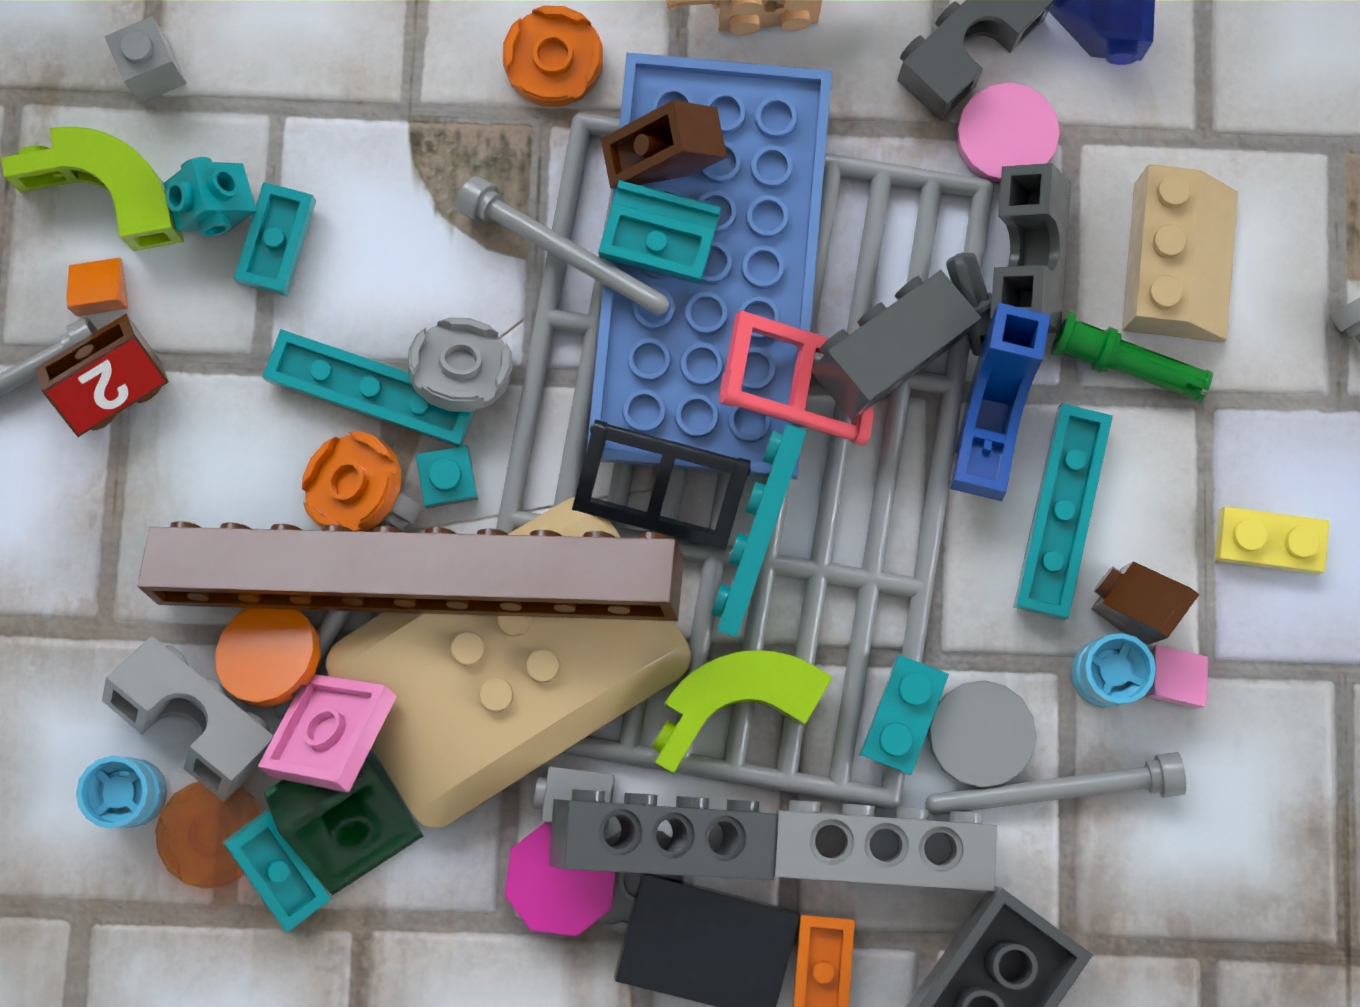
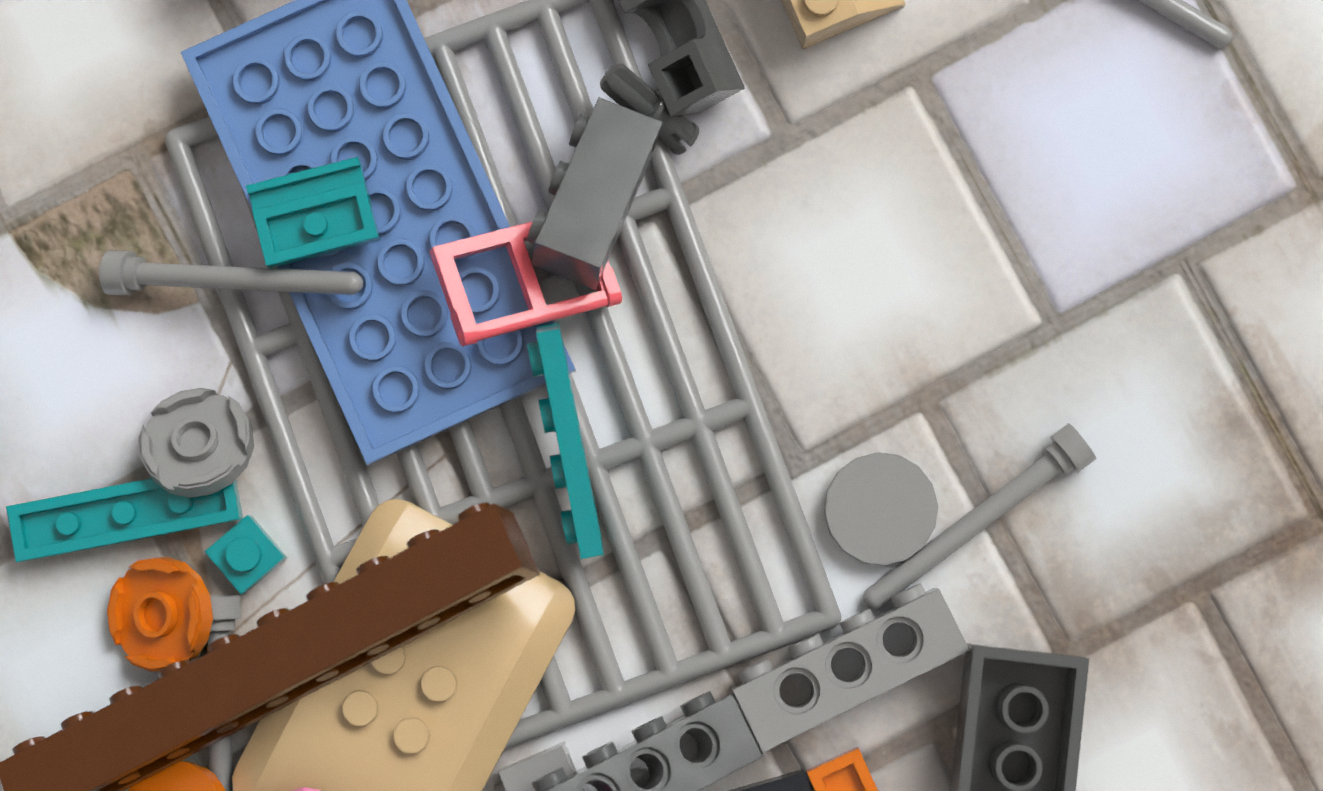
camera: 25 degrees left, 5 degrees up
(553, 56) = (110, 90): orange tile -> none
(652, 519) = (461, 487): black window -> none
(664, 144) = (269, 126): reddish brown slope -> none
(745, 676) = (639, 580): lime arch -> none
(904, 715) = (798, 534): teal plate -> none
(997, 400) = (722, 191): blue arch -> none
(1063, 511) = (841, 257): teal plate -> none
(1107, 350) = (799, 78): green pin -> none
(1113, 670) = (968, 383): medium azure wheel -> none
(1142, 602) = (959, 304): reddish brown slope -> none
(1179, 677) = (1032, 351): bright pink slope -> none
(1272, 540) = (1050, 172): light yellow plate -> none

